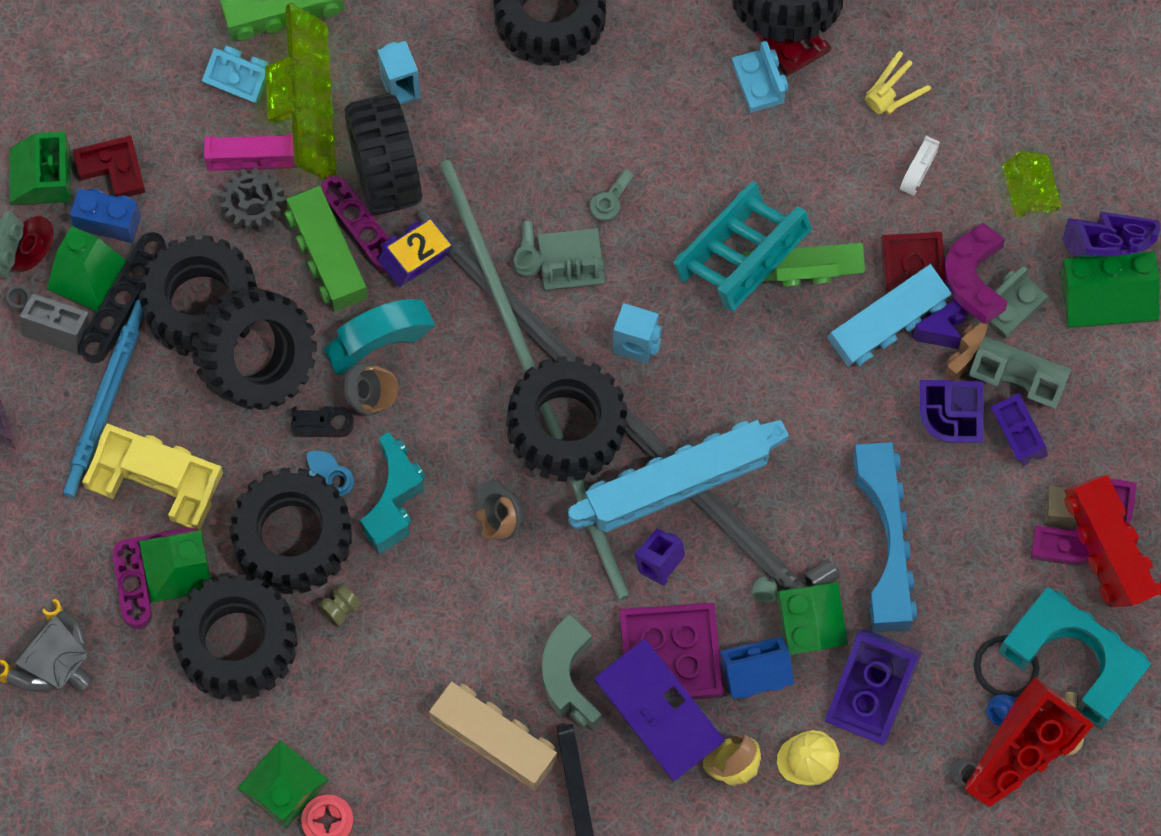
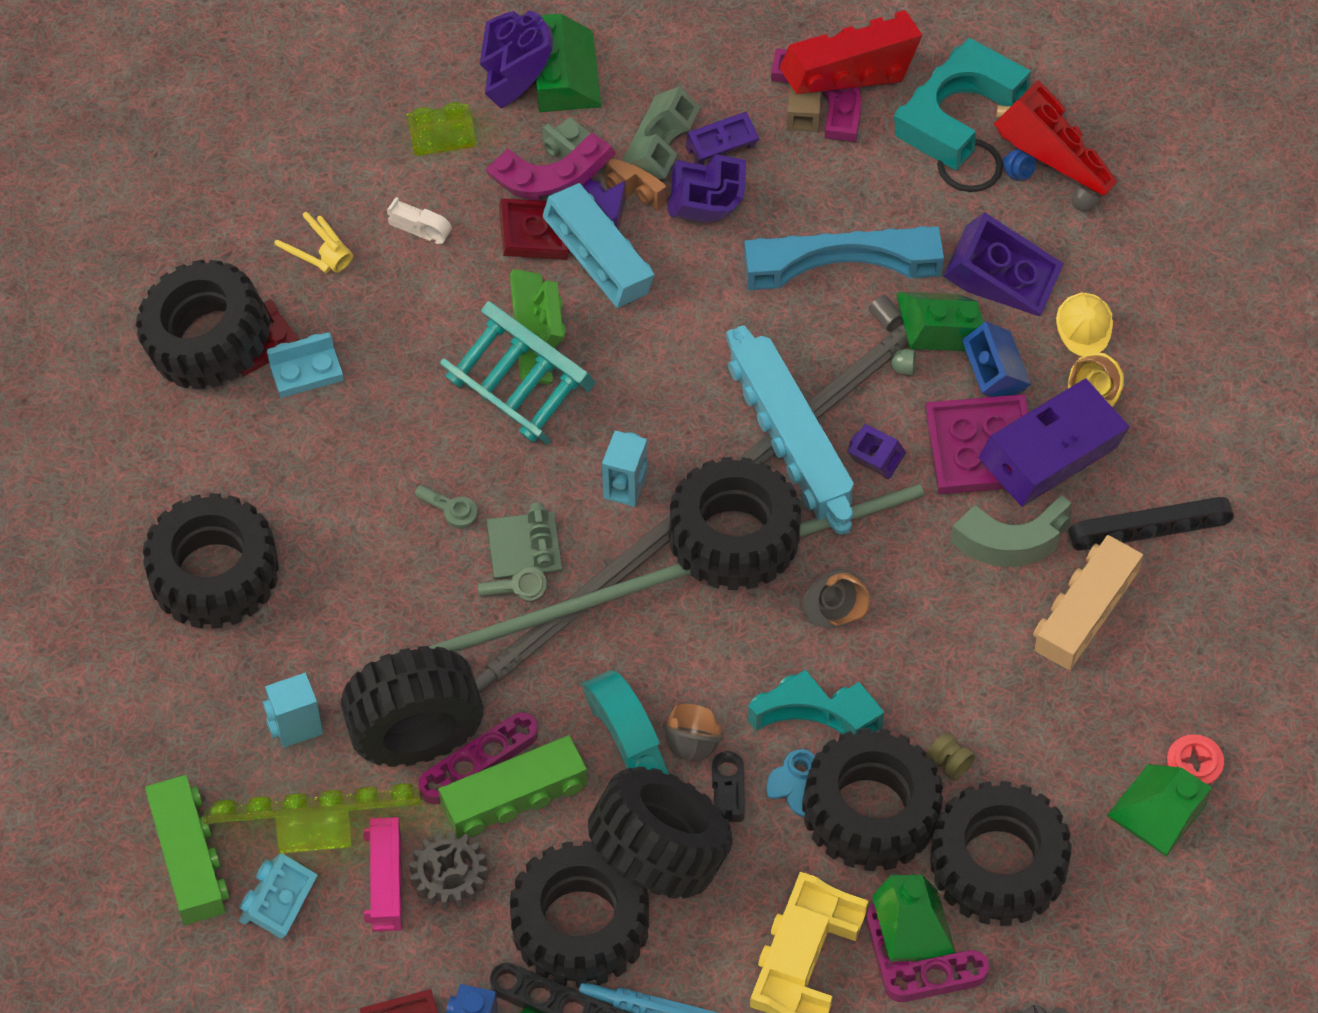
camera: 90 degrees left, 10 degrees down
(414, 252) = (523, 689): brick -> none

